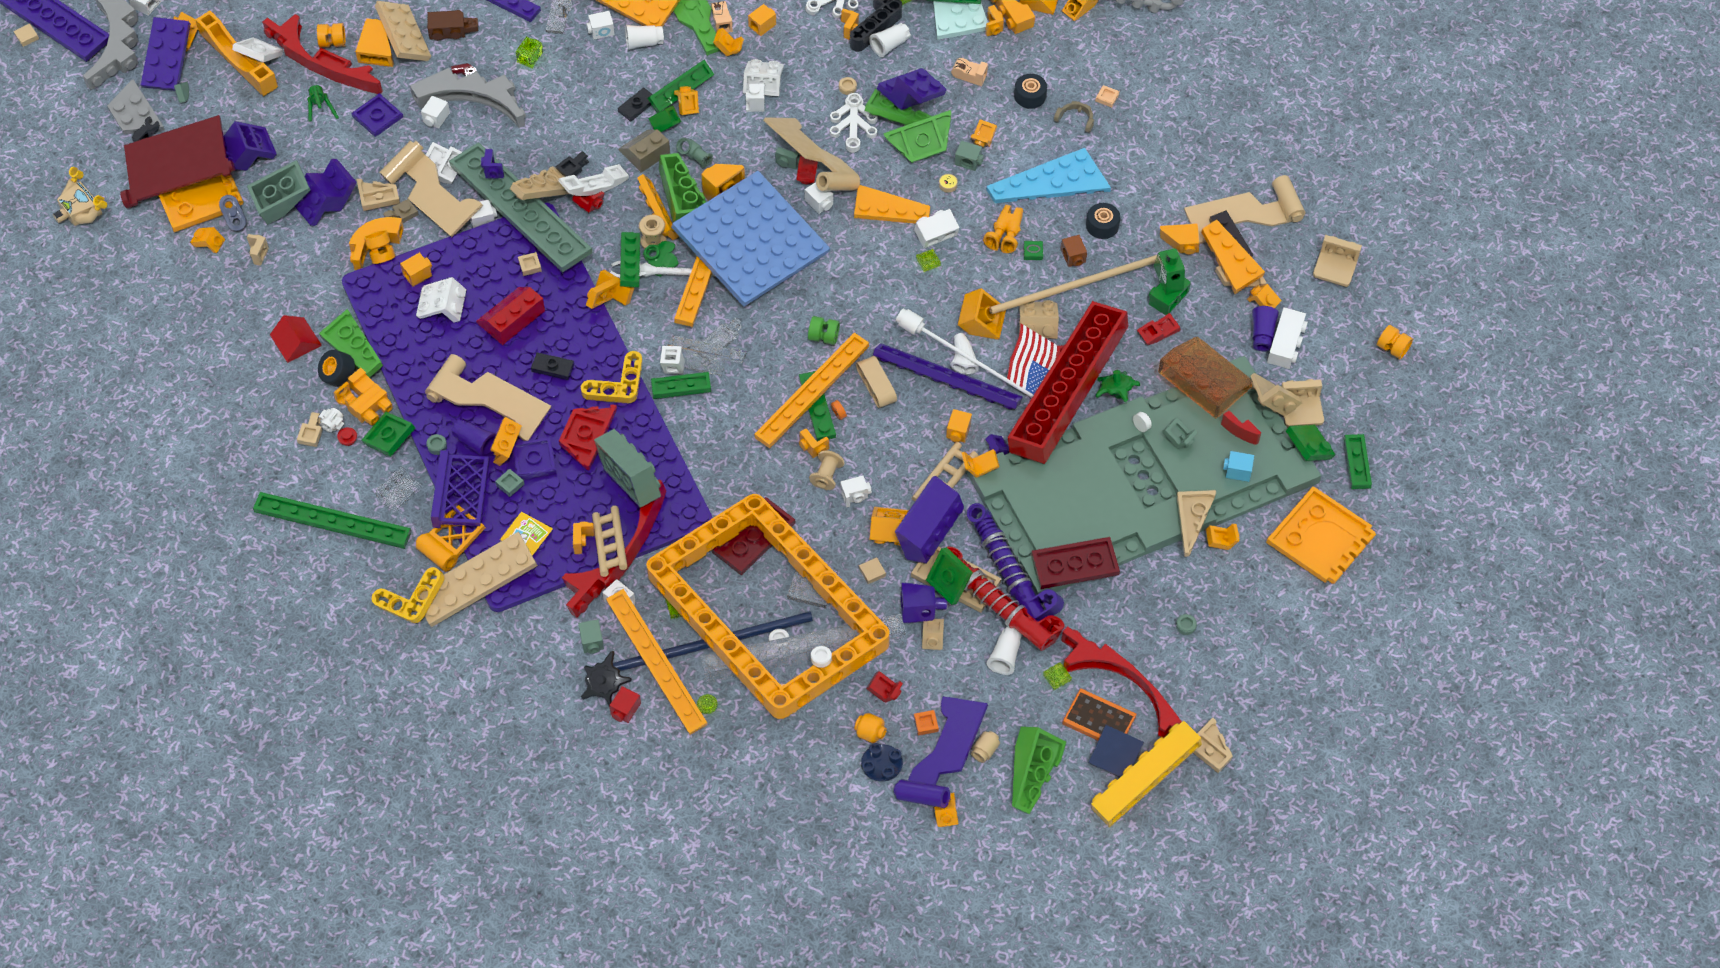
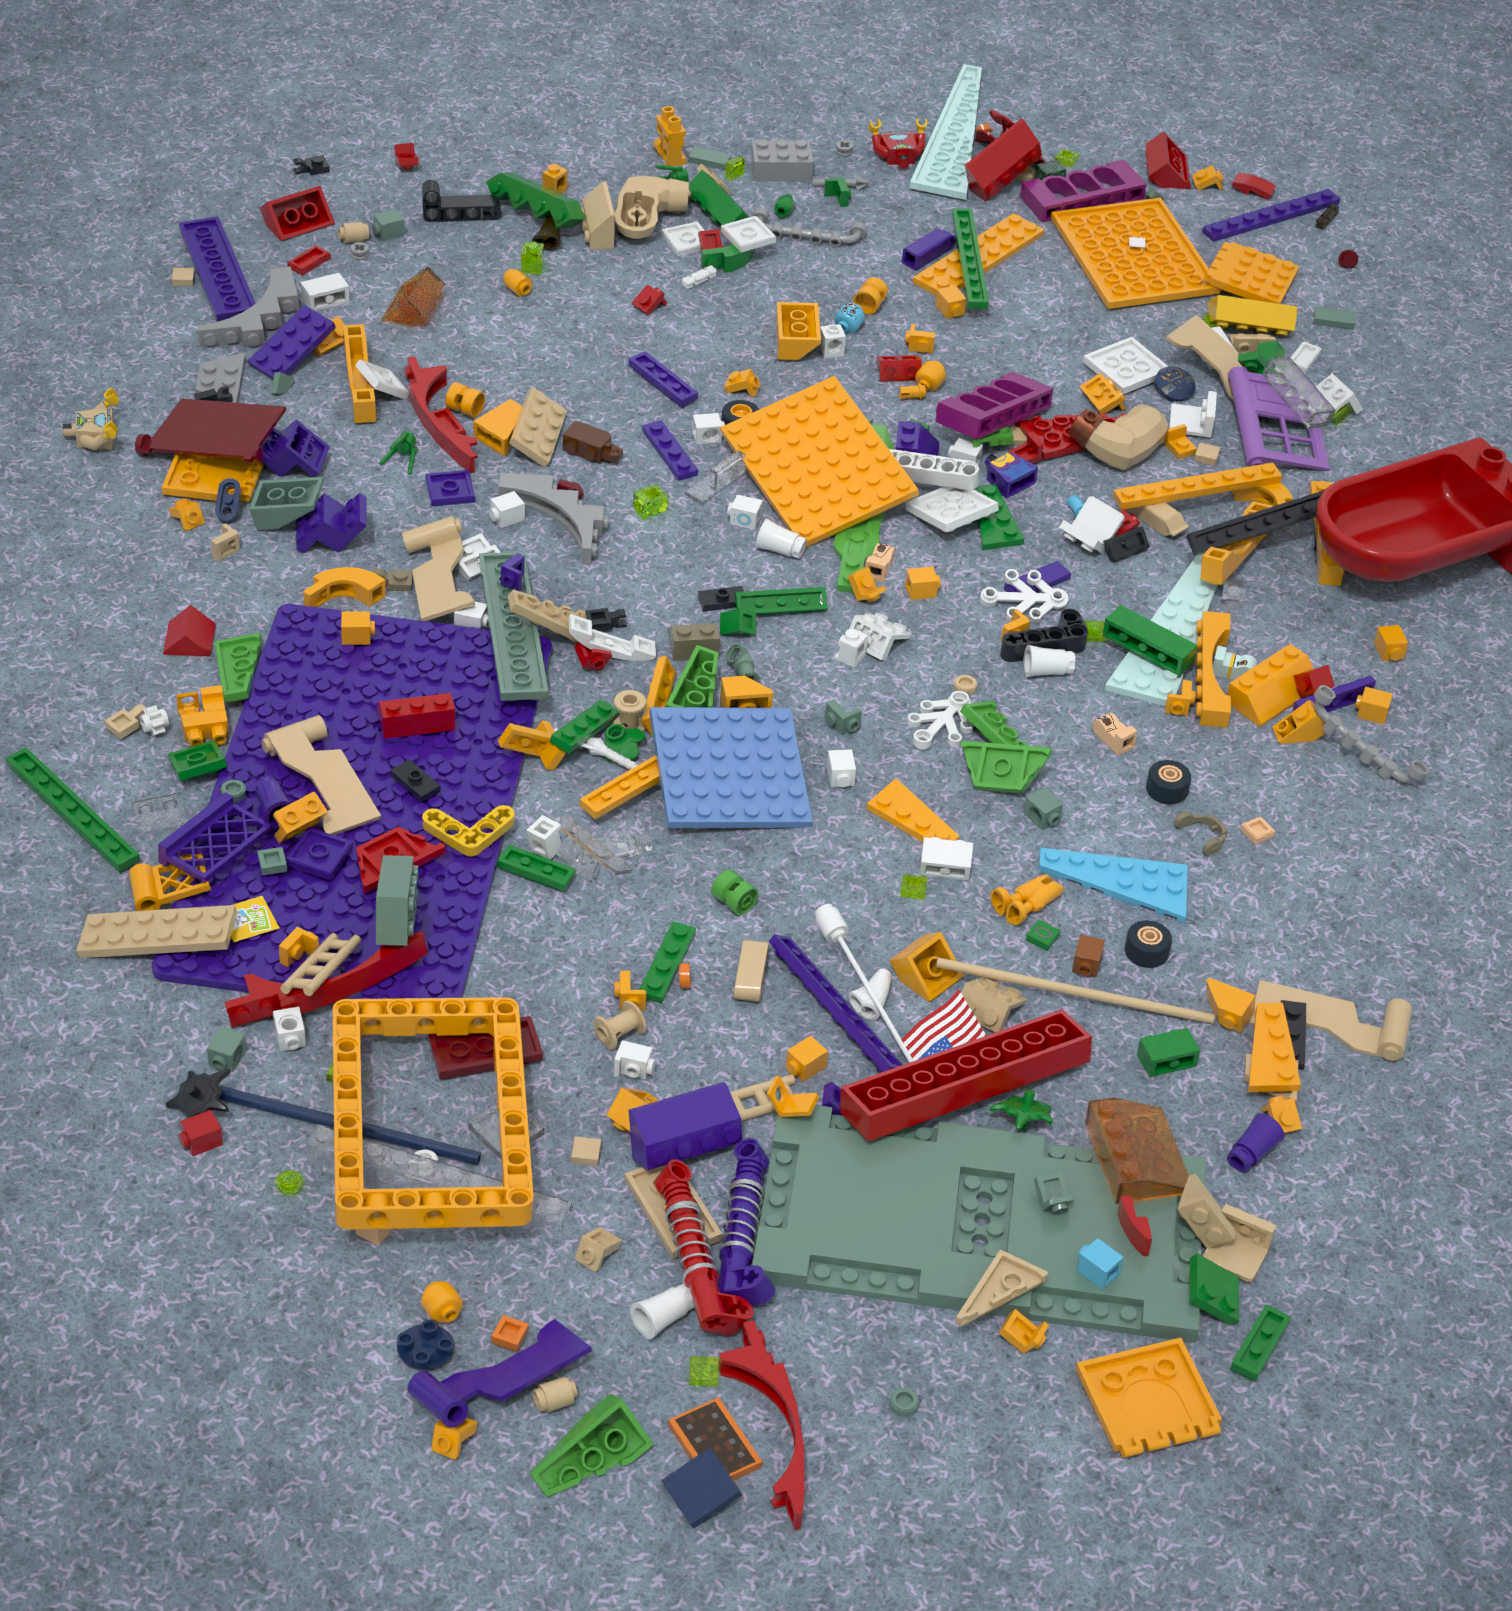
camera: 30 degrees right, 15 degrees down
(335, 367) = (199, 673): black wheel -> none
(347, 436) = (157, 744): red plate -> none
(377, 194) = (384, 553): tan wing -> none
(378, 240) = (340, 585): light orange wheel -> none
(410, 605) = (76, 926): yellow beam -> none
(442, 297) = (360, 666): white bracket -> none
(529, 264) = (476, 680): tan tile -> none
(656, 662) = (268, 1109): light orange plate -> none
(687, 100) = (775, 616): light orange bracket -> none
(806, 170) = (850, 735): red bracket -> none
(811, 390) = (668, 938): light orange plate -> none
(821, 656) = (431, 1183): white tile -> none
(842, 176) = (881, 755): tan door -> none
(884, 687) = (493, 1270): red bracket -> none
(911, 88) = (1028, 713): dark purple bracket -> none
(919, 603) = (605, 1206): dark purple torso -> none
(948, 183) = (999, 825): tile -> none
(949, 576) = (655, 1191): green plate -> none
(984, 133) = (1079, 797): light orange bracket -> none
(1075, 562) = (817, 1259): dark red plate -> none
(1142, 421) = (1019, 1158): white tile -> none
(1146, 773) = (713, 1526): yellow brick -> none
(1159, 330) = (1118, 1084): red slope -> none
(1167, 265) = (1179, 1010): green torso -> none
(1213, 747) = (822, 1547): tan wing -> none
(1287, 338) = (1275, 1168): white brick -> none
(1337, 260) = (1405, 1121): tan bracket -> none
(1395, 342) = (1410, 1239): light orange wheel -> none

